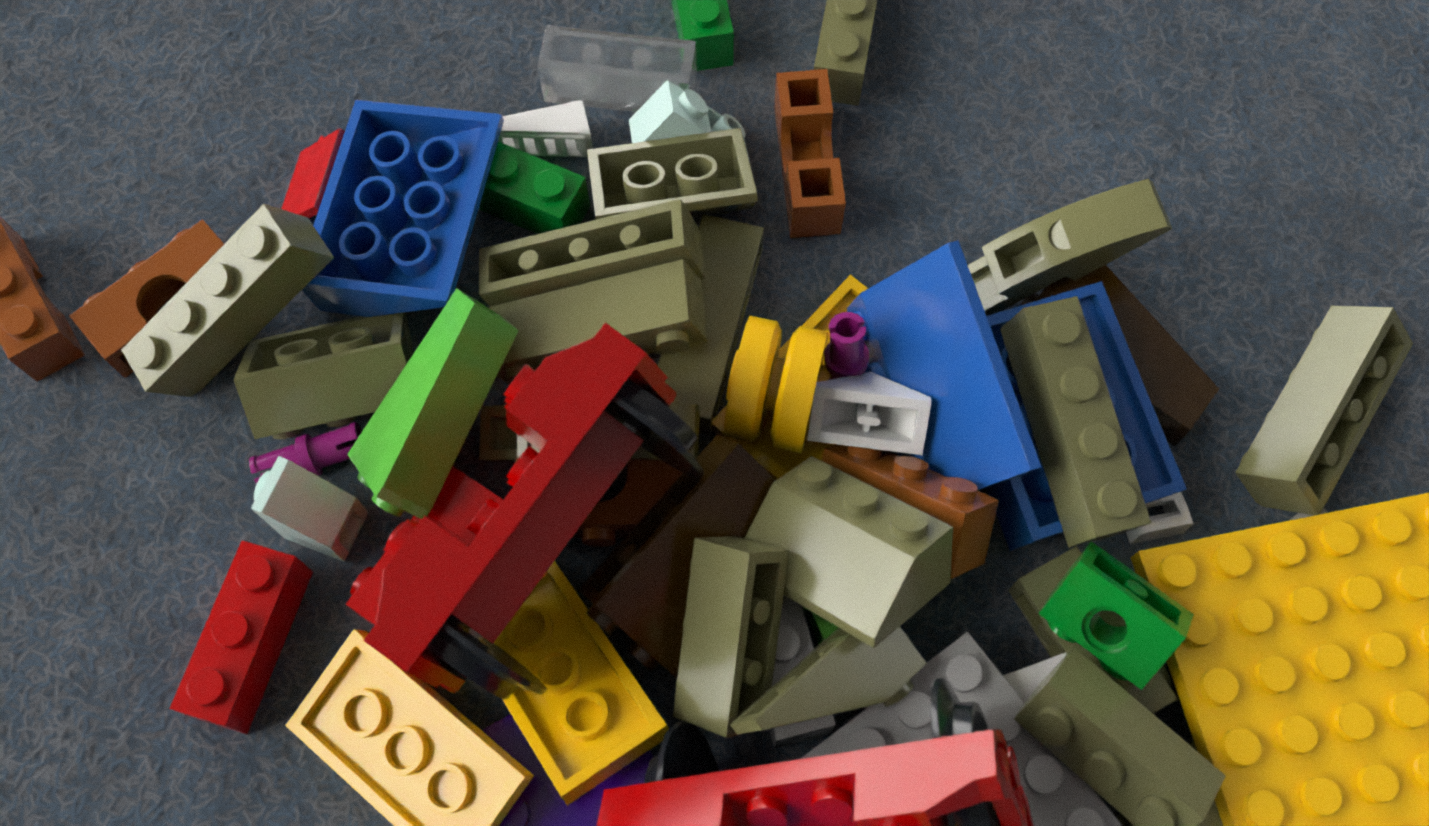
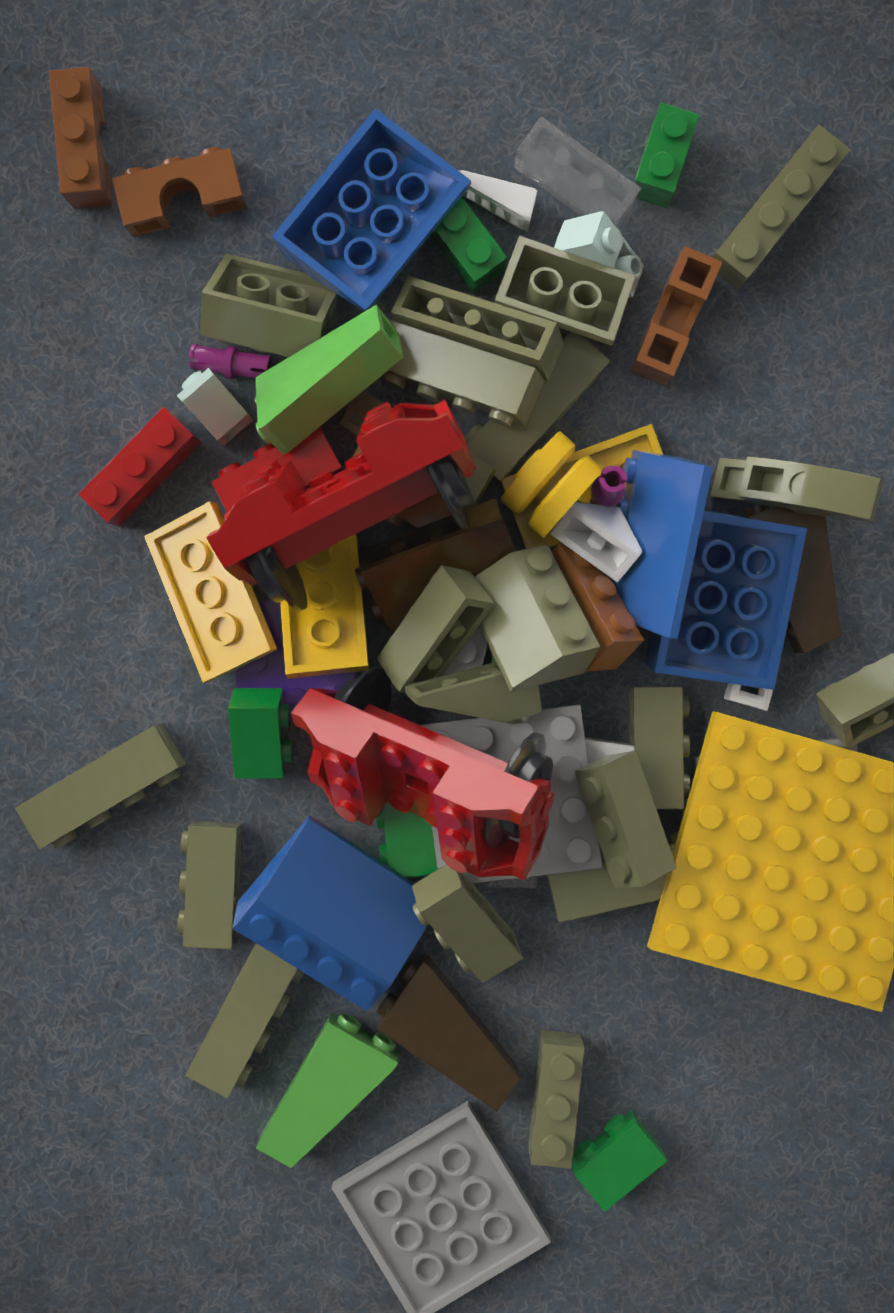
camera: 30 degrees right, 20 degrees up
(227, 302) = (221, 229): olive brick -> none
(312, 175) = (317, 151): piece -> none
(1074, 422) = (722, 616): olive brick -> none
(1100, 583) = (688, 757): green brick -> none

